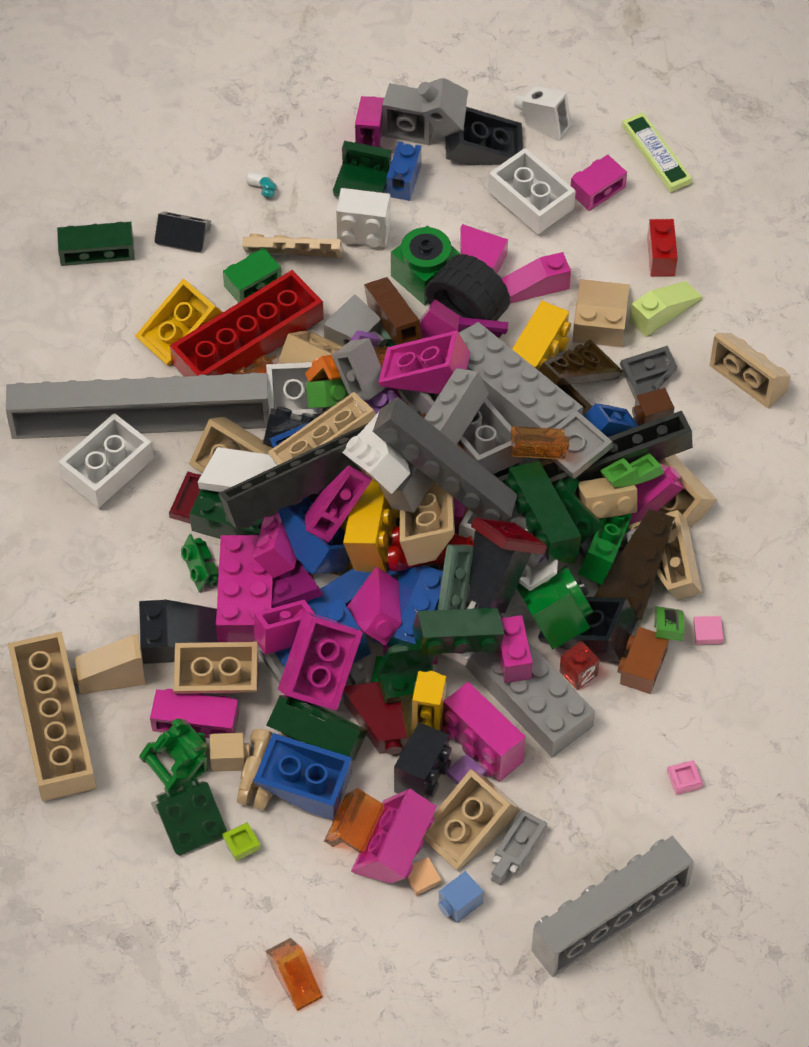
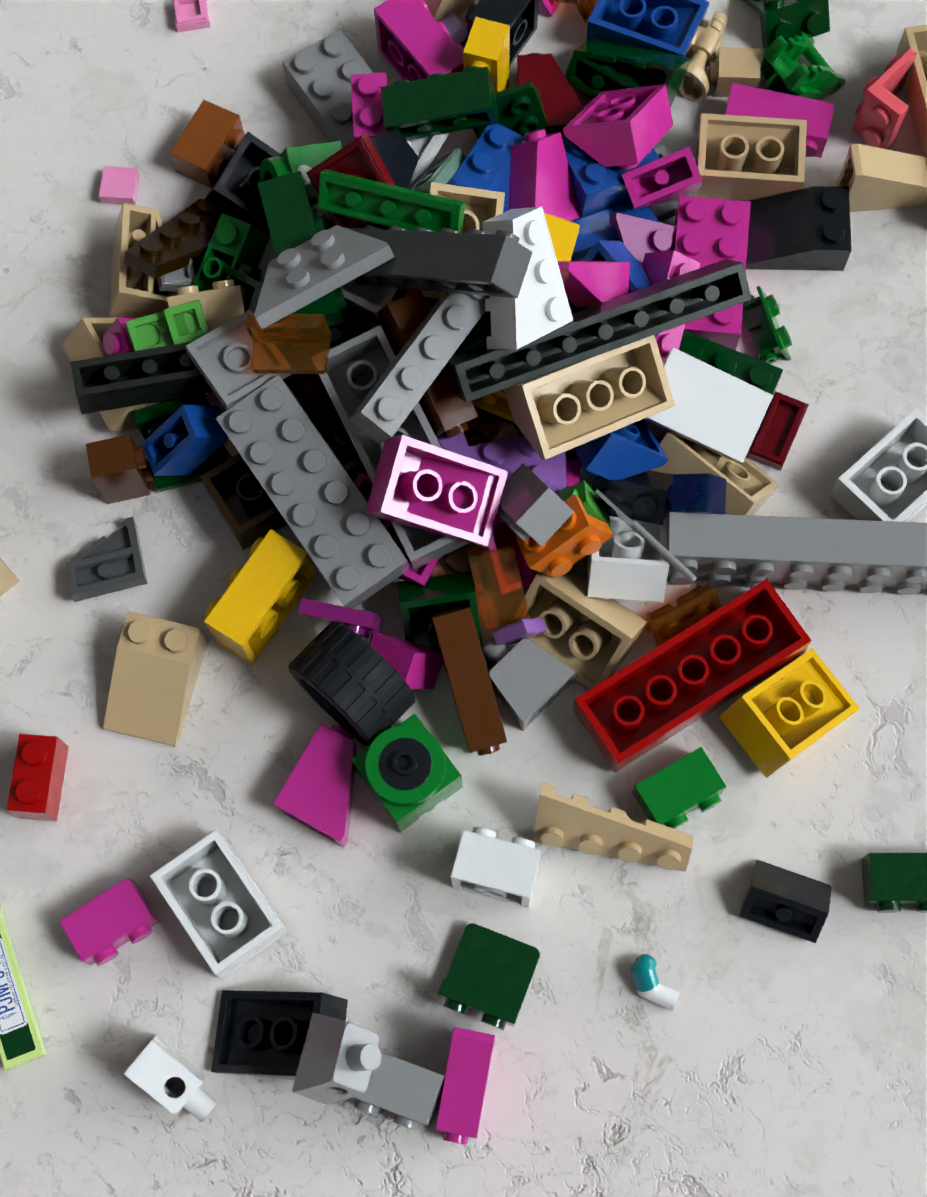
camera: 170 degrees left, 15 degrees up
(115, 726) = (881, 111): none -> coral bracket
(248, 415) = (698, 493): none -> clear blue brick
(300, 393) = (634, 525): none -> light grey piece
(405, 168) = (419, 975): blue brick -> none
(480, 512) = (387, 203): none -> green tile
(526, 468) = (316, 269): none -> light grey wing
(539, 278) = (246, 740): dark pink slope -> none
(579, 665) = (287, 131): clear red brick -> none
(581, 365) = (204, 554): dark brown wing -> none
(662, 306) = (58, 676): yellowish green slope -> none
(669, 623) = (165, 179): bright green slope -> none

